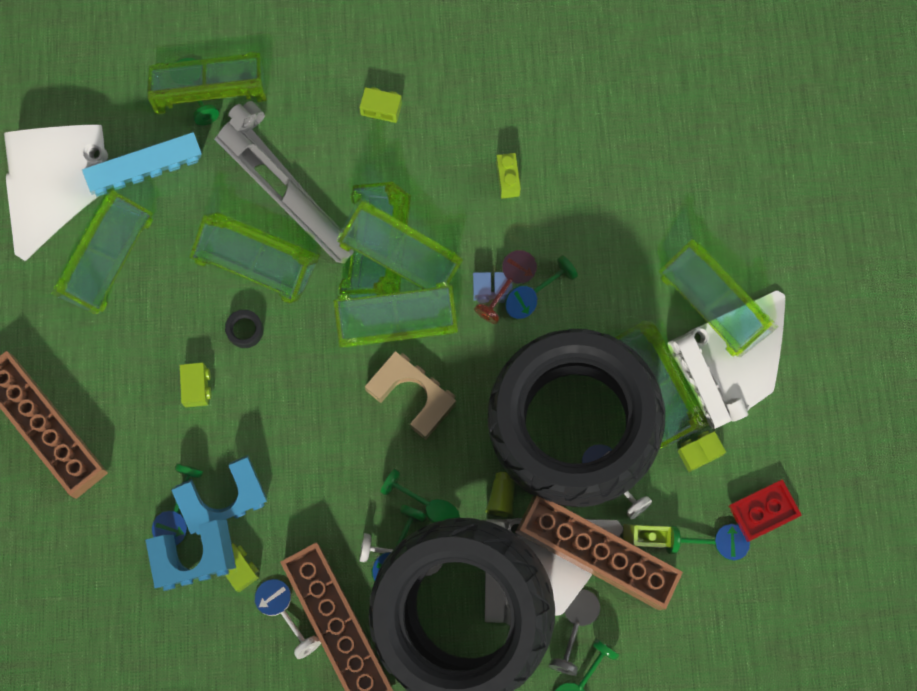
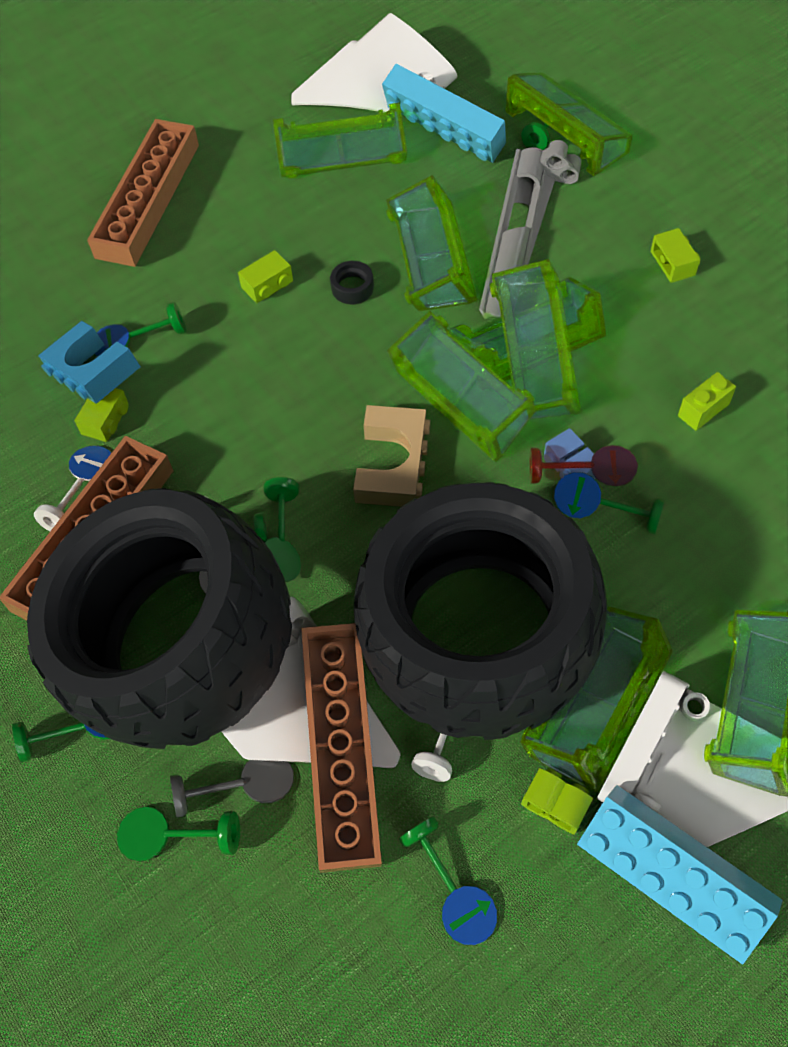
camera: 60 degrees right, 15 degrees down
(249, 496) = (185, 376): dark azure arch -> none
(502, 496) = (334, 608): lime plant -> none
(647, 535) = (402, 797): lime slope -> none
(765, 510) = (540, 932): red plate -> none
(782, 416) = (681, 874): none -> medium azure brick

